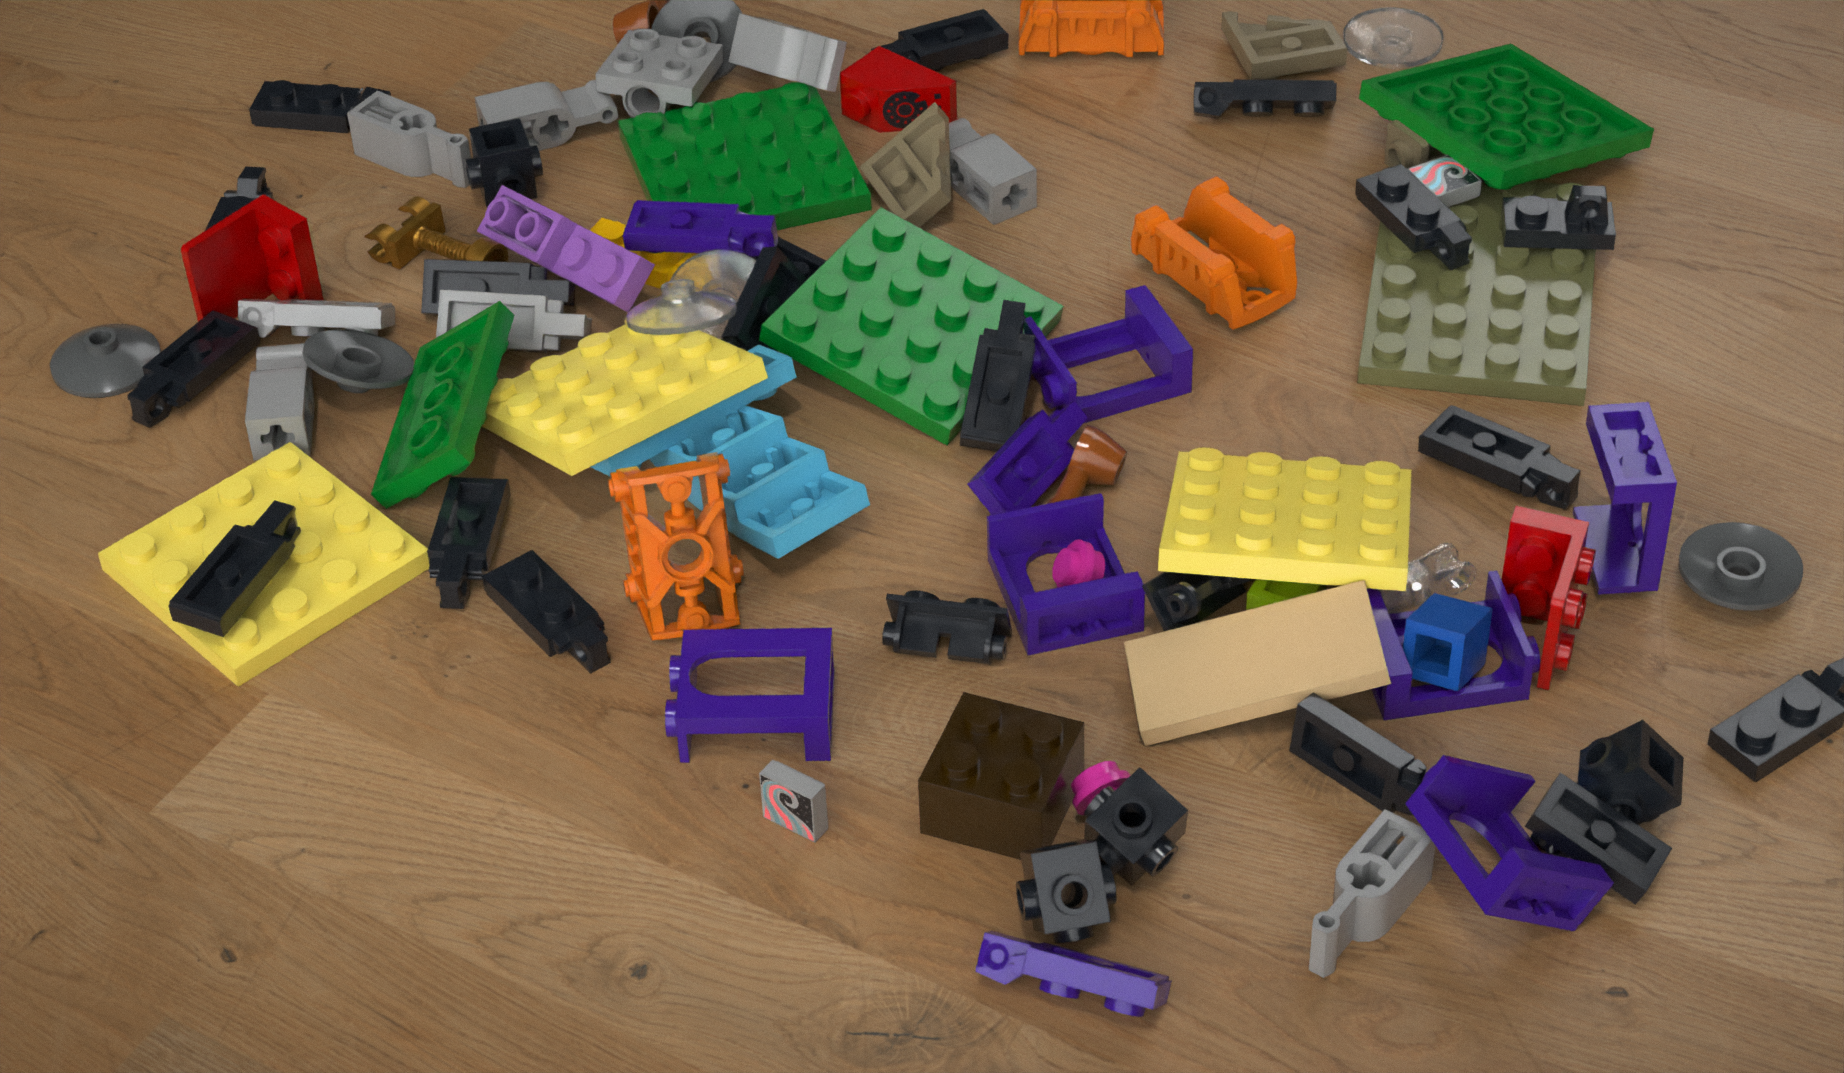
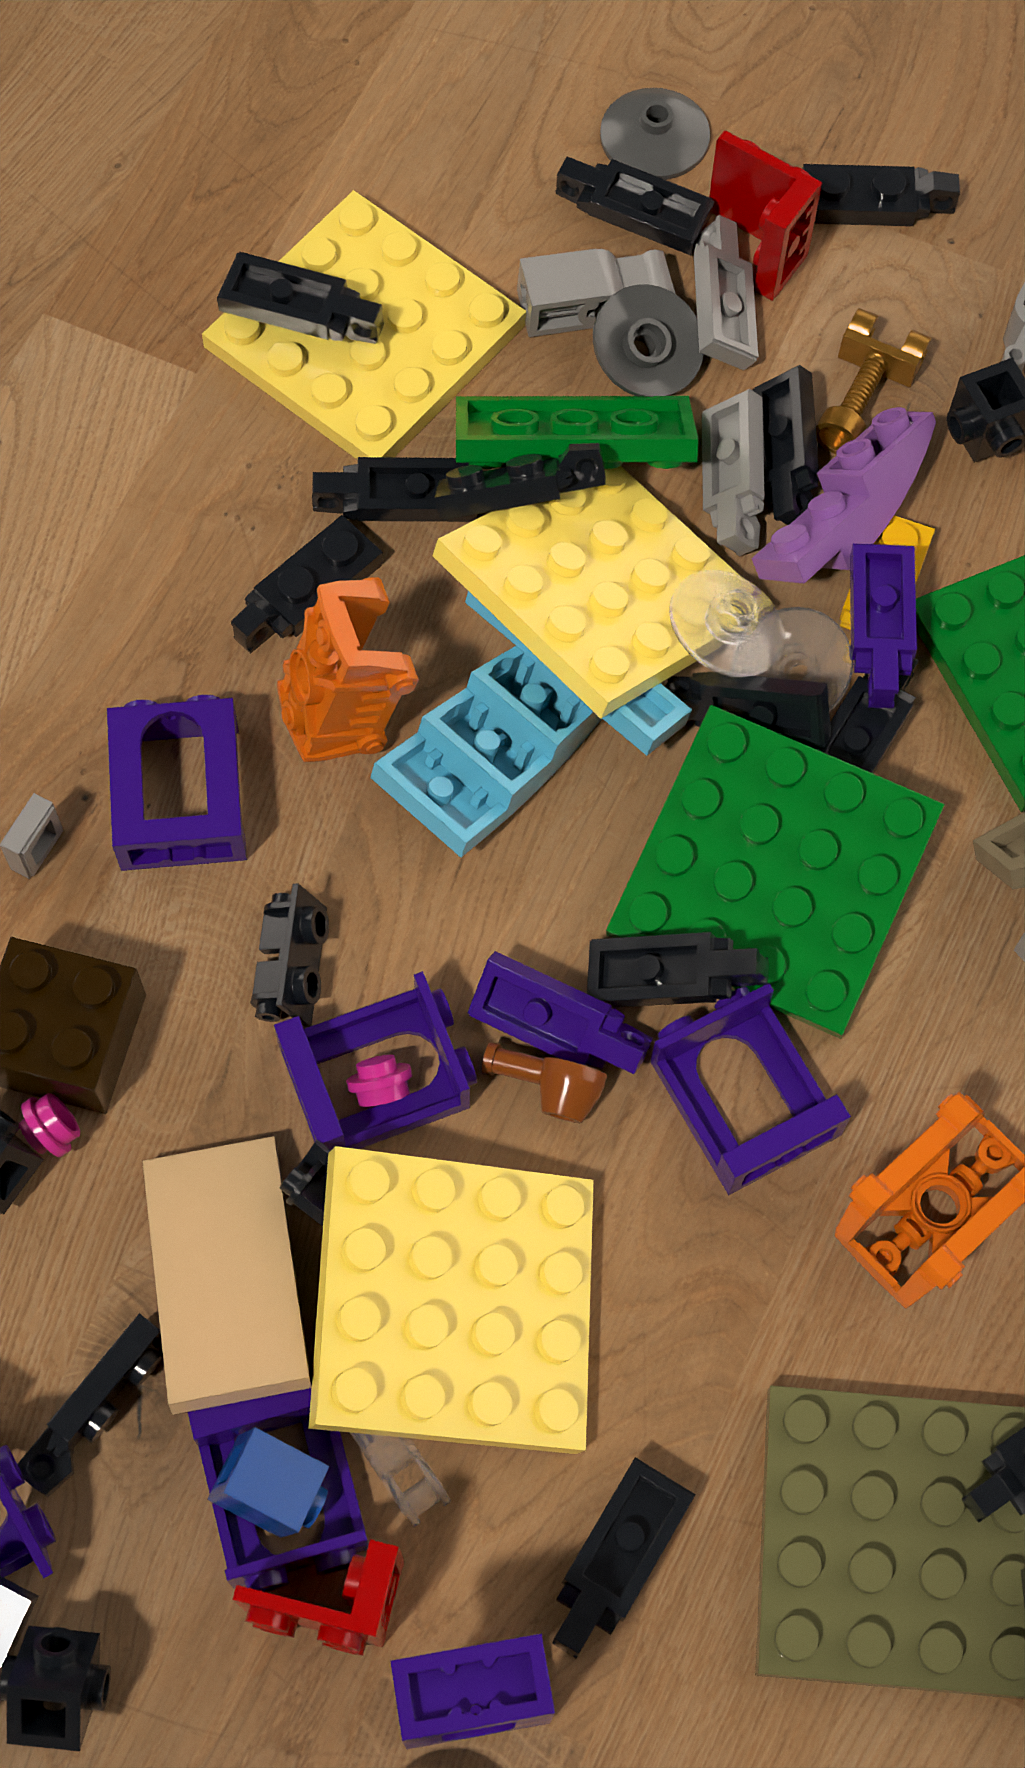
camera: 80 degrees right, 25 degrees up
(508, 420) = (520, 483): none -> black hinge

